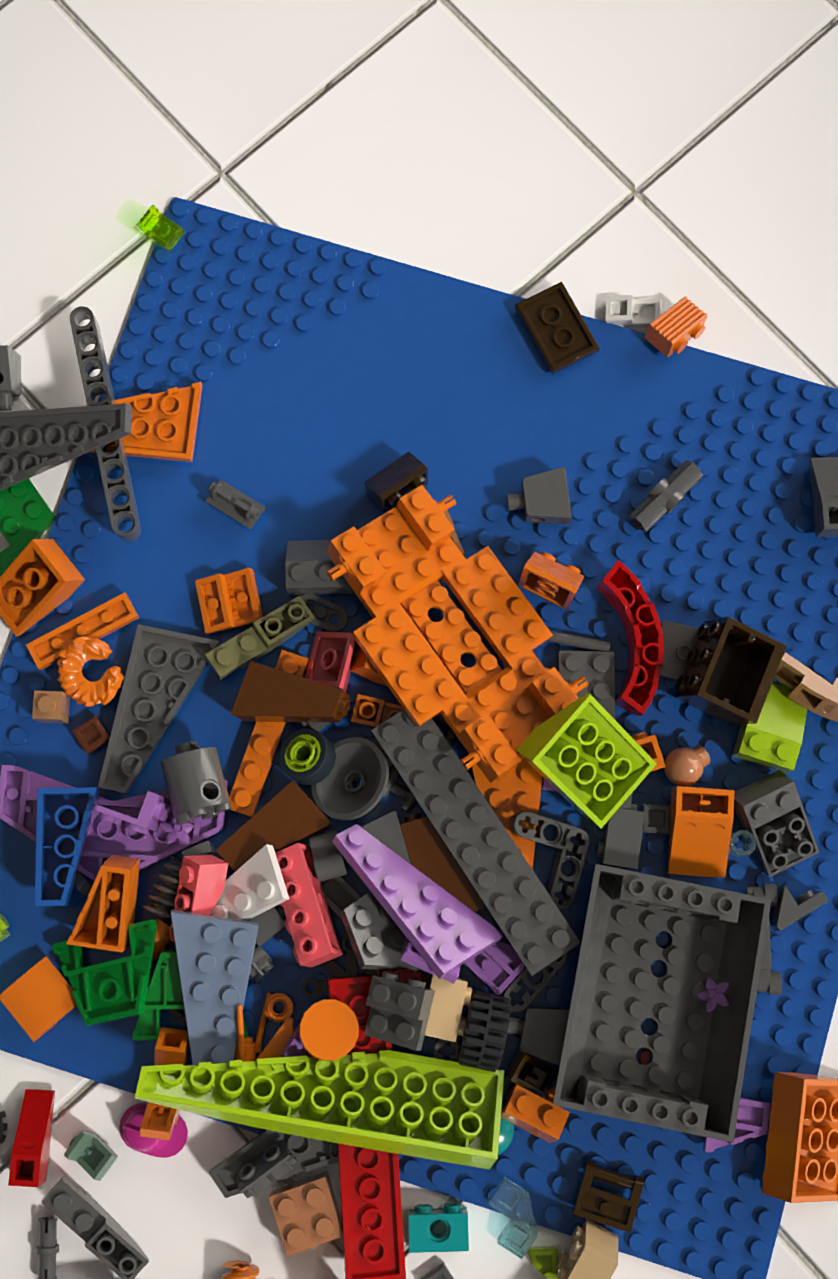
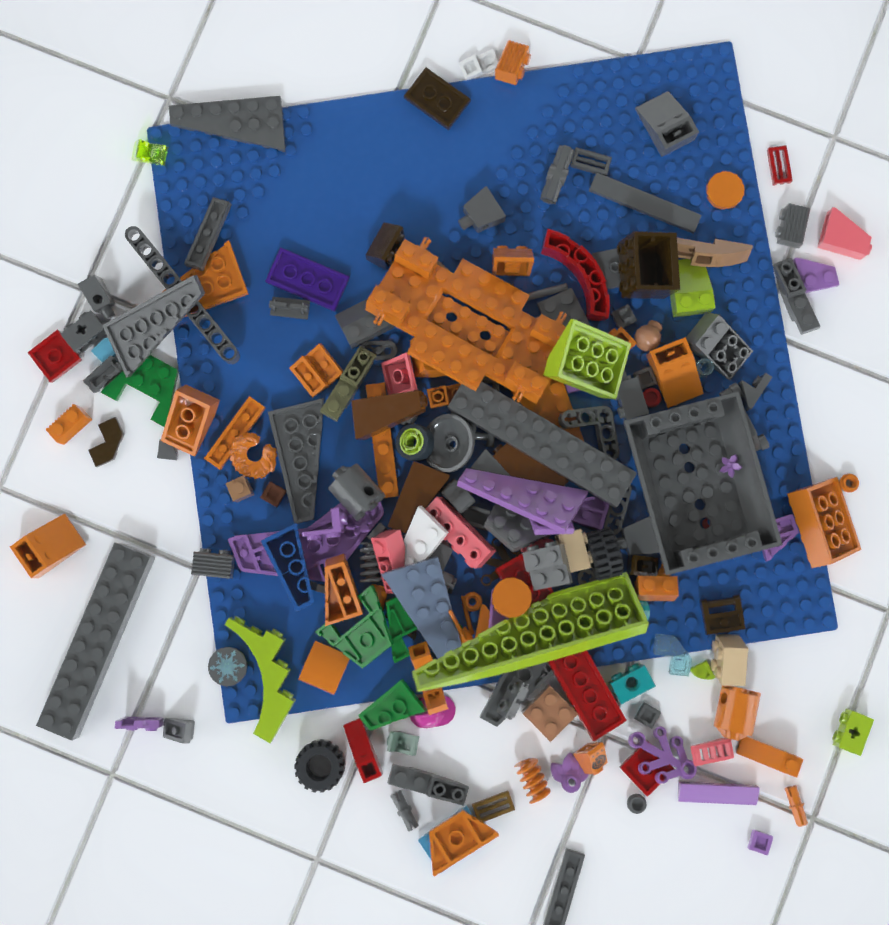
camera: 25 degrees left, 5 degrees up
(101, 1097) = (392, 706): none -> green wing
(178, 362) = (207, 234): none -> dark grey tile
(276, 479) = (307, 279): none -> dark purple tile
(295, 241) = (240, 120): none -> dark grey wing
(652, 849) = (652, 397): none -> red tile
(665, 723) = (623, 316): none -> dark grey tile
(713, 509) = (574, 164): none -> dark grey tile
(765, 587) = (645, 203): none -> dark grey tile

